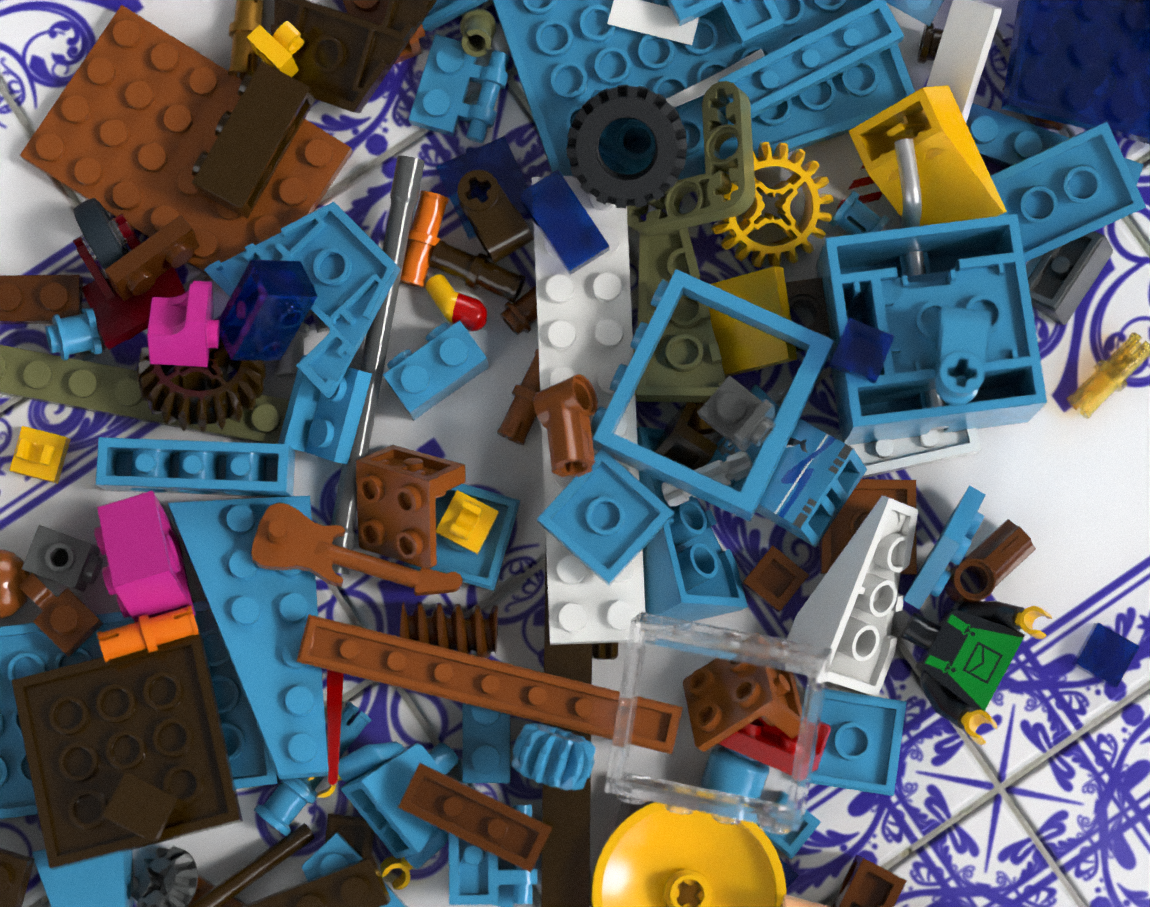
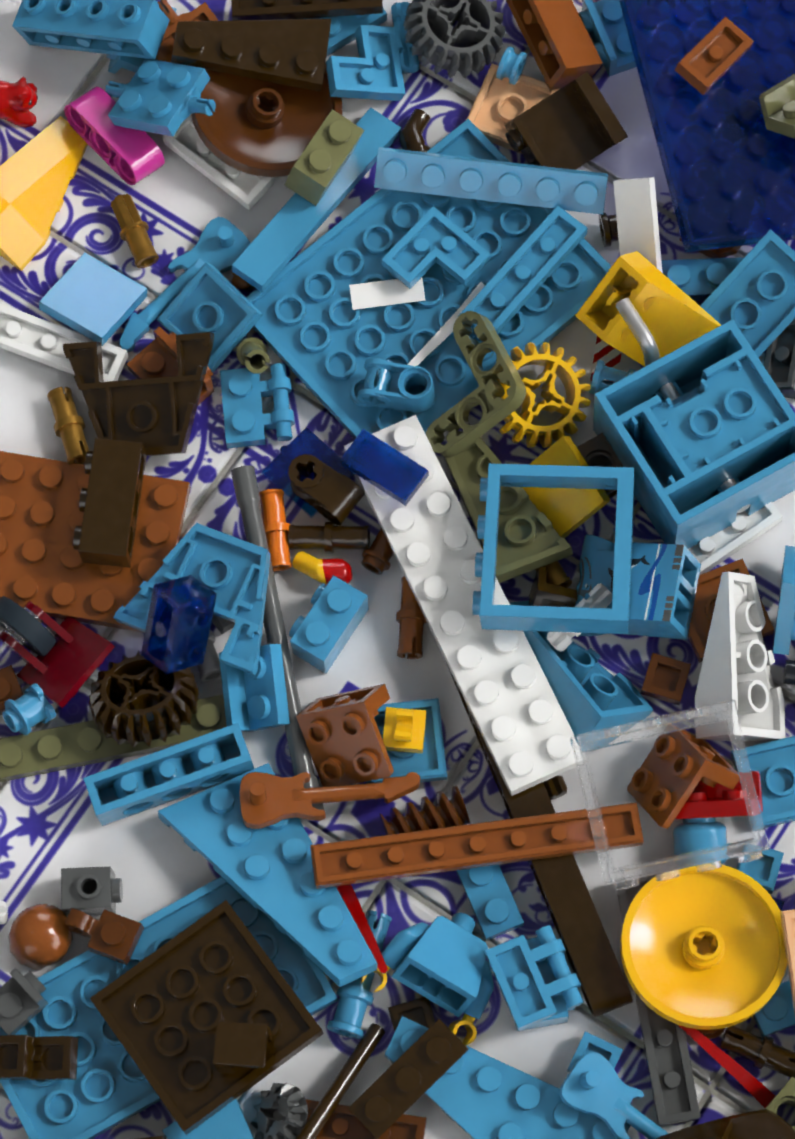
camera: 20 degrees left, 10 degrees down
(40, 454) = (36, 819): yellow tile -> none
(142, 557) = (159, 861): dark pink brick -> none
(147, 633) = (186, 914): orange pin -> none
(164, 250) = (65, 629): reddish brown plate -> none
(183, 327) = (118, 663): dark pink brick -> none
(279, 48) = (102, 425): yellow tile -> none
(475, 817) = (510, 947): reddish brown plate -> none
(553, 756) = (552, 876): dark azure gear -> none
(565, 414) = (450, 607): dark orange piece -> none
(605, 517) = (513, 674): dark azure plate -> none
(627, 188) = (446, 381): black tyre -> none
(739, 415) = (586, 550): dark grey bracket -> none
(862, 351) = (659, 464): clear blue plate -> none
(961, 346) = (734, 431): dark azure piece -> none

